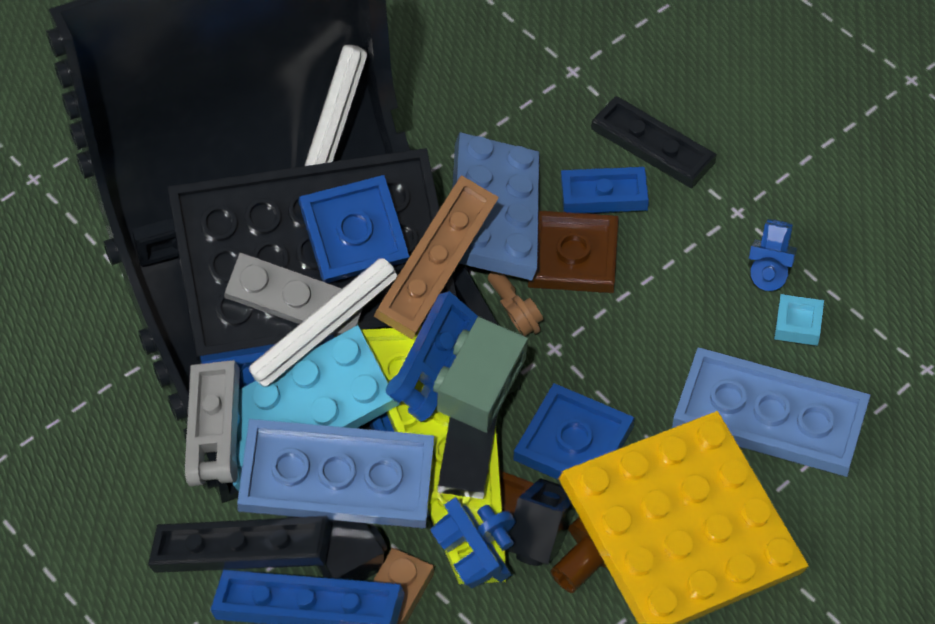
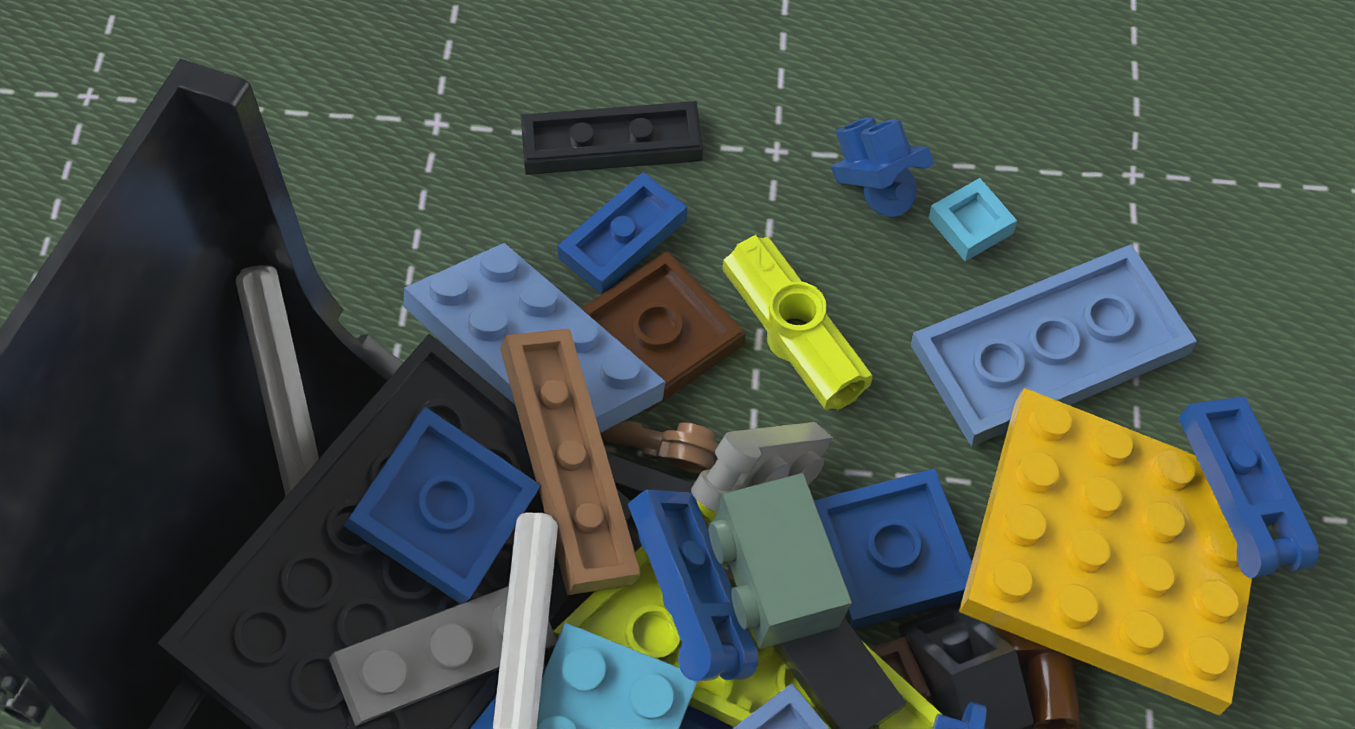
camera: 45 degrees left, 5 degrees up
(548, 341) = (761, 457): none -> light grey plate
(641, 315) = (813, 349): none -> neon yellow piece
(781, 544) = (1249, 487): none -> blue plate

